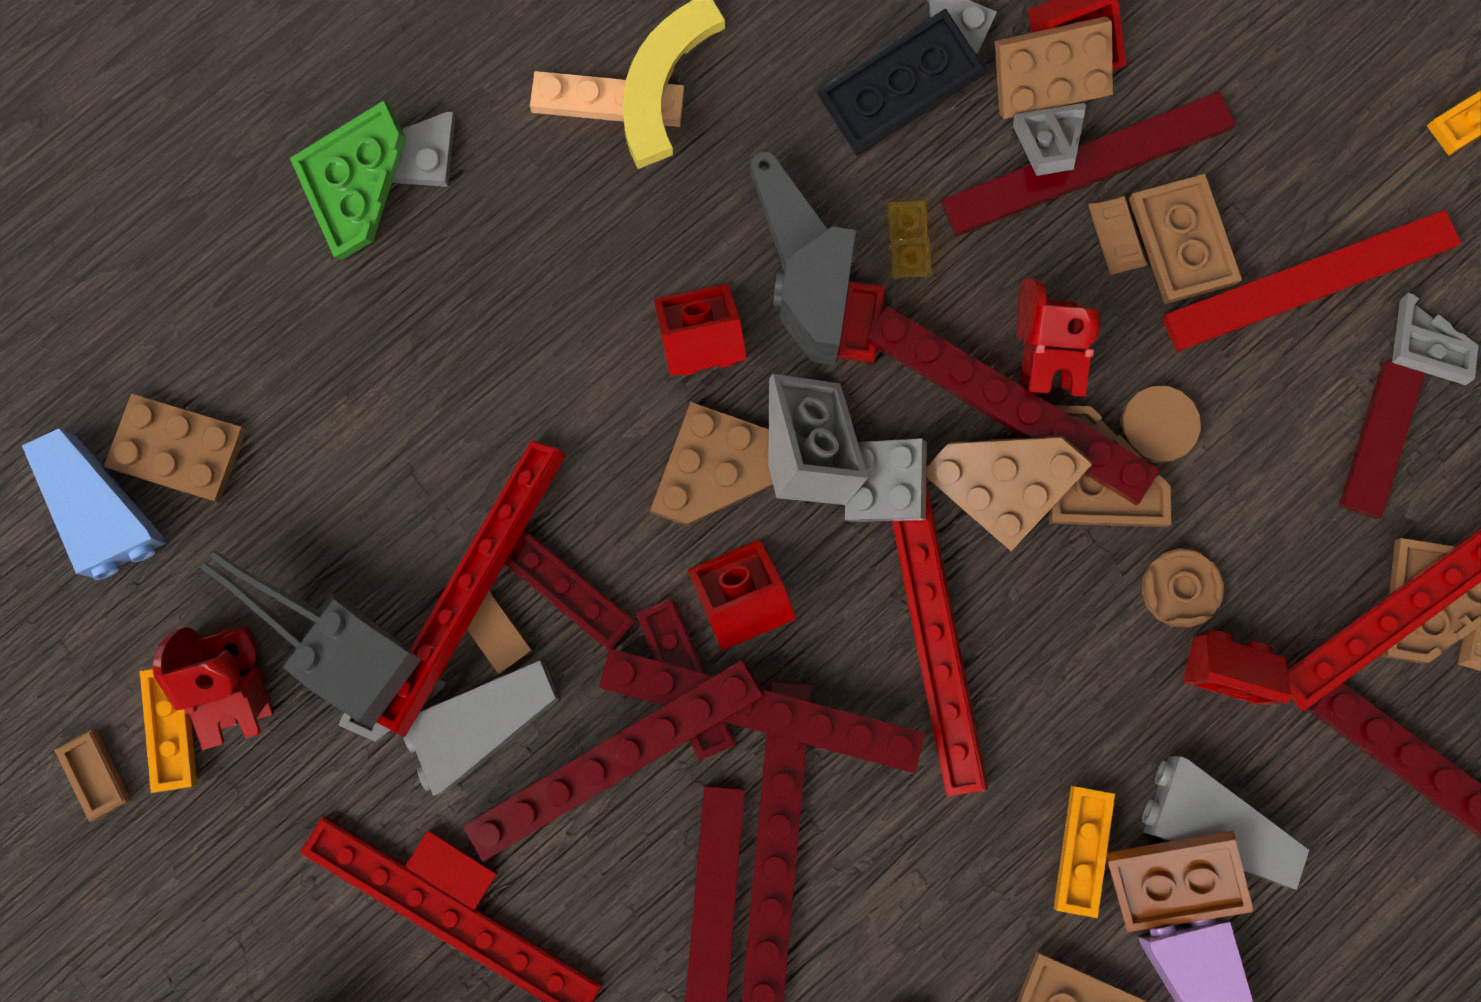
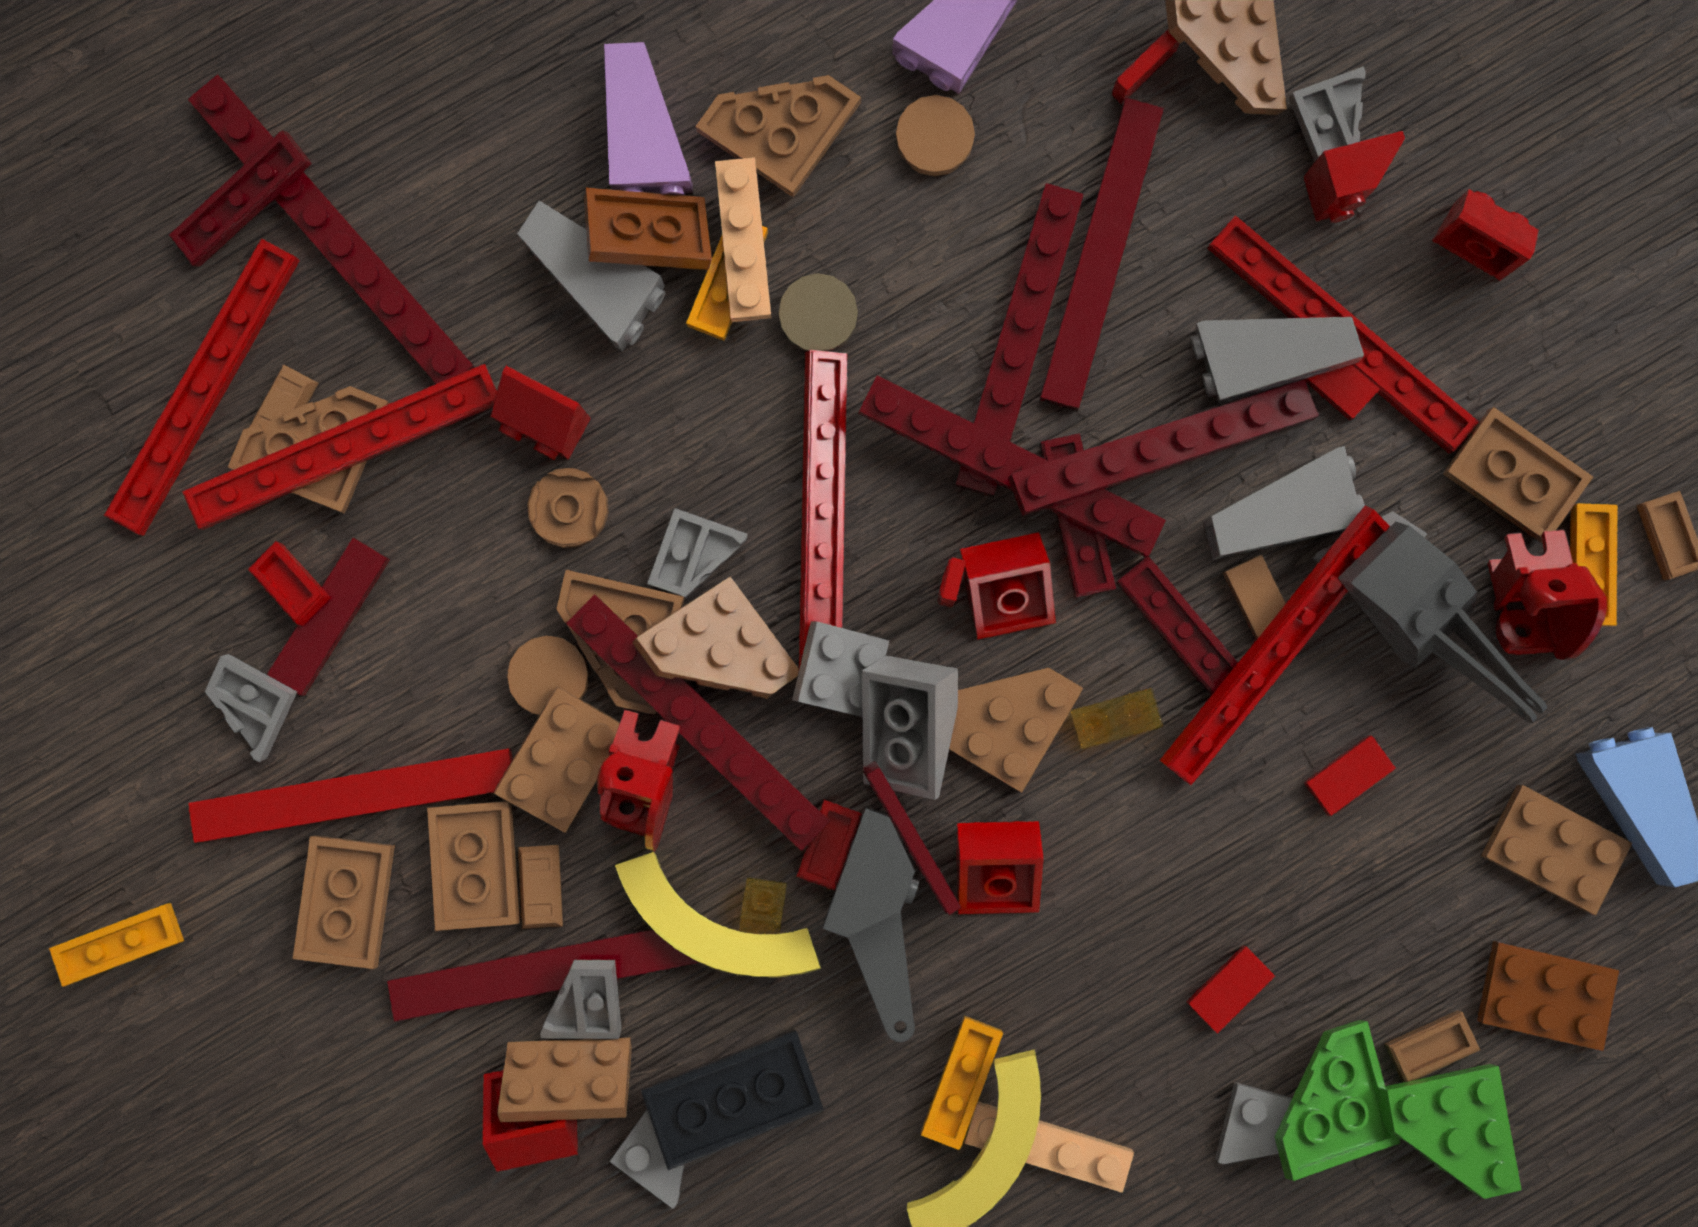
camera: 165 degrees left, 5 degrees up
(168, 314) = (1548, 996): none -> dark orange plate
(239, 183) = (1458, 1126): none -> bright green plate
(254, 805) = (1517, 474): none -> medium nougat plate
(270, 249) = (1432, 1046): none -> medium nougat tile
(381, 479) = (1349, 775): none -> red tile
(464, 264) = (1230, 989): none -> red tile
(521, 880) = (1271, 353): none -> light grey slope
(612, 490) = (1117, 718): none -> clear yellow slope
(696, 136) = (961, 1082): none -> light orange plate
(788, 337) = (911, 838): none -> dark red tile
(799, 581) = (951, 582): none -> red tile
(958, 211) = (707, 941): none -> light yellow tile
(984, 832) = (818, 313): none -> dark tan tile
(1053, 567) = (692, 552): none -> light grey wing
(1079, 892) = (743, 239): none -> light nougat plate
(1132, 347) = (559, 760): none -> medium nougat plate
(1294, 185) = (343, 902): none -> medium nougat plate
(1429, 461) = (289, 583): none -> red tile

